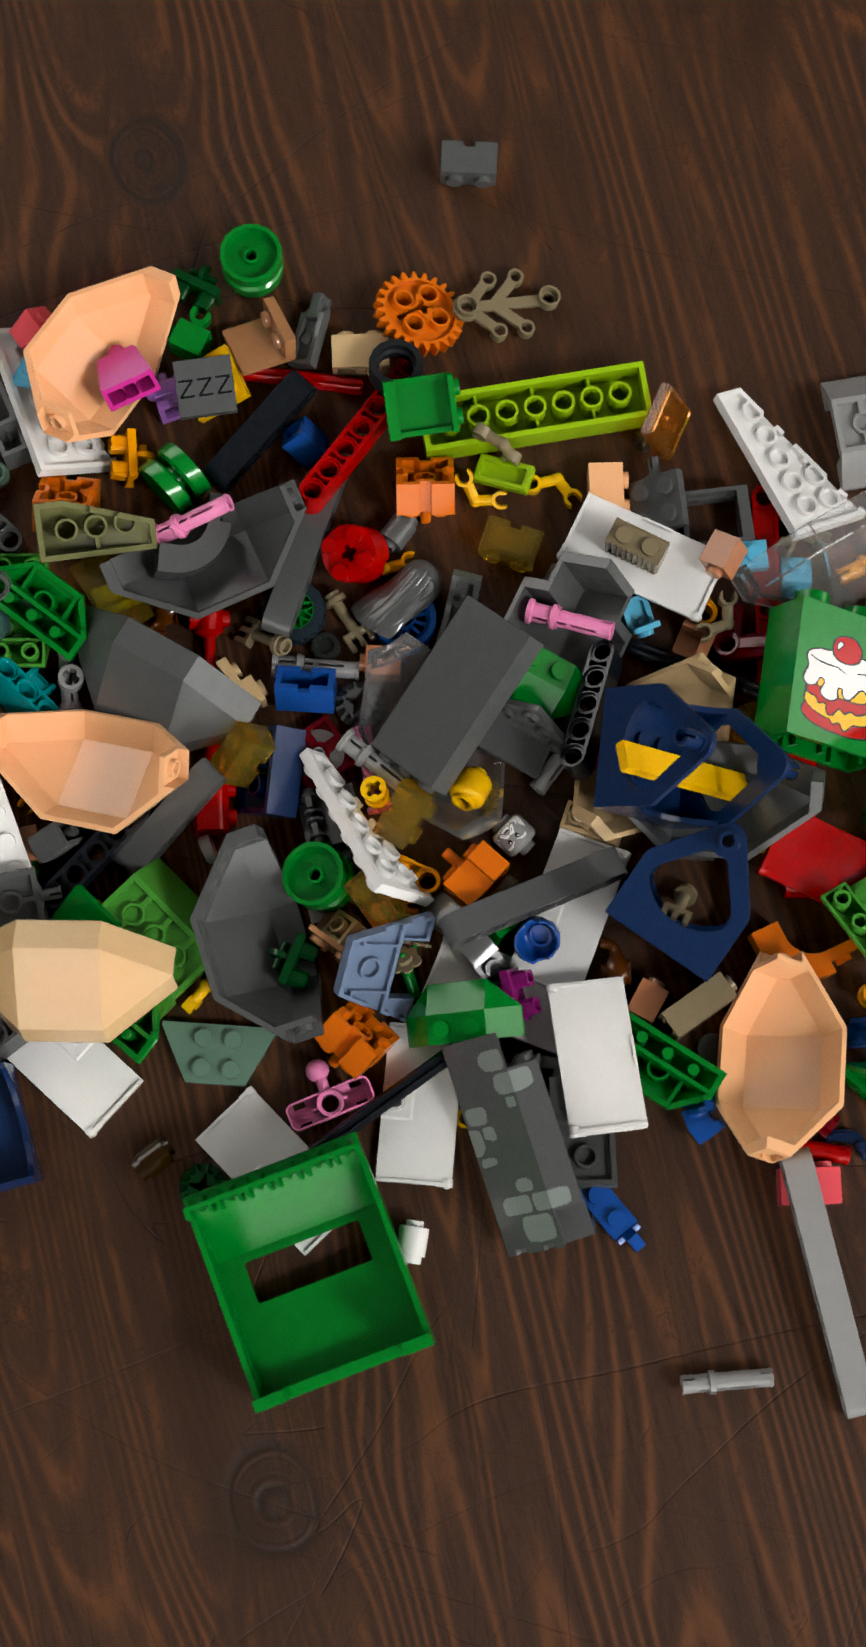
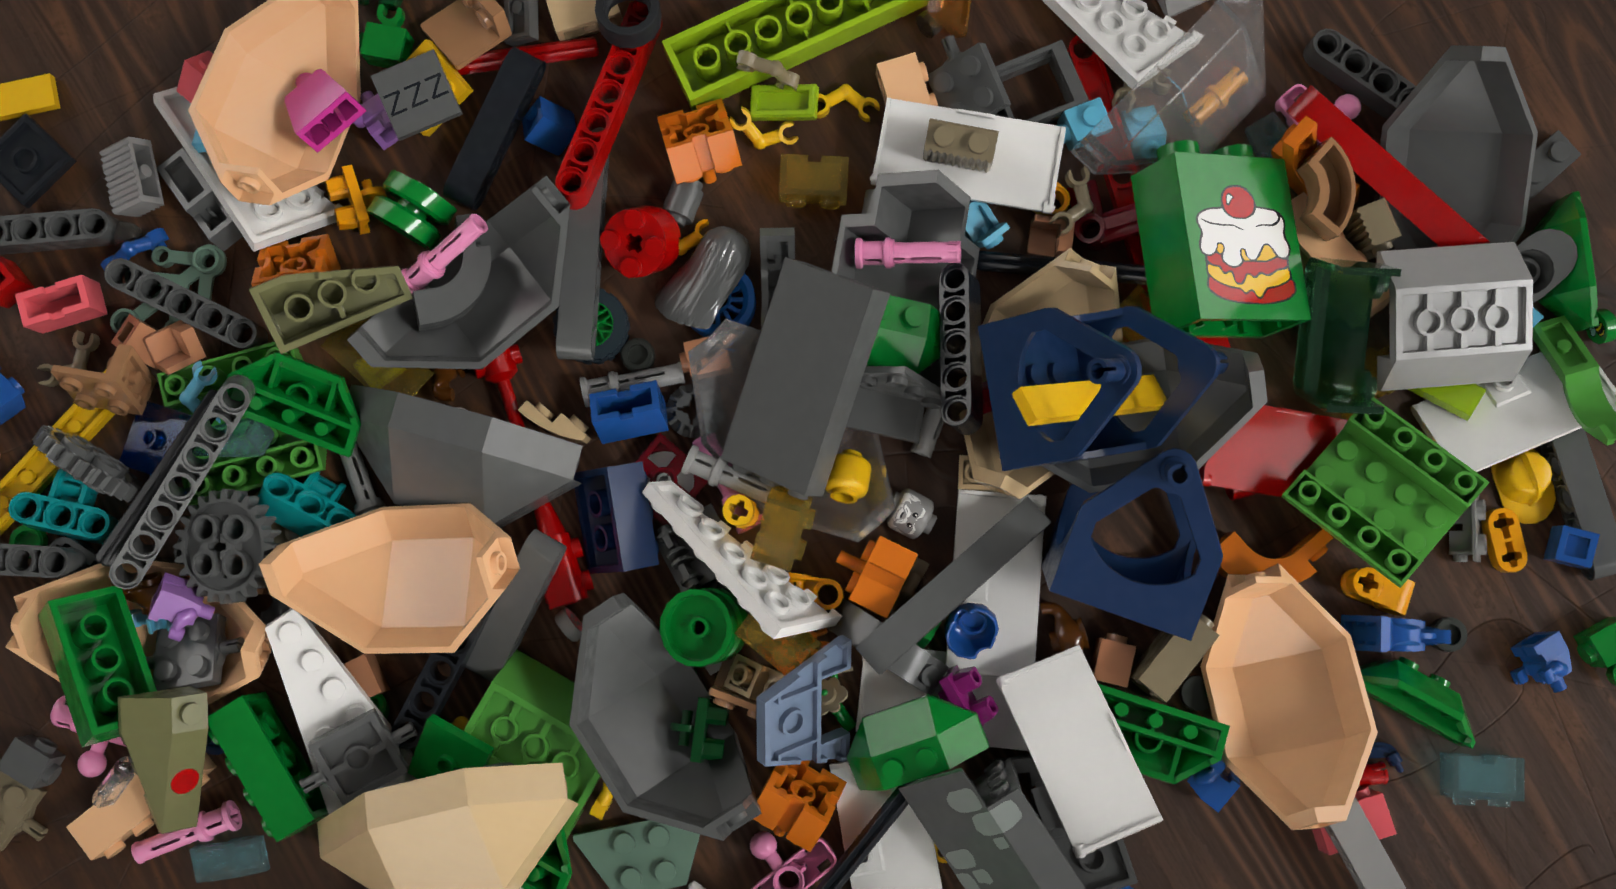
camera: 10 degrees left, 5 degrees up
(58, 840) = (390, 671): dark grey brick -> none
(62, 680) = (366, 467): light grey bush -> none
(242, 752) = (577, 508): clear yellow brick -> none
(278, 644) = (583, 370): dark tan hinge -> none
(335, 601) = (667, 329): dark tan hinge -> none
(422, 405) = (670, 48): green panel -> none
(685, 896) = (1121, 529): dark tan hinge -> none
(723, 555) = (1062, 129): nougat brick -> none

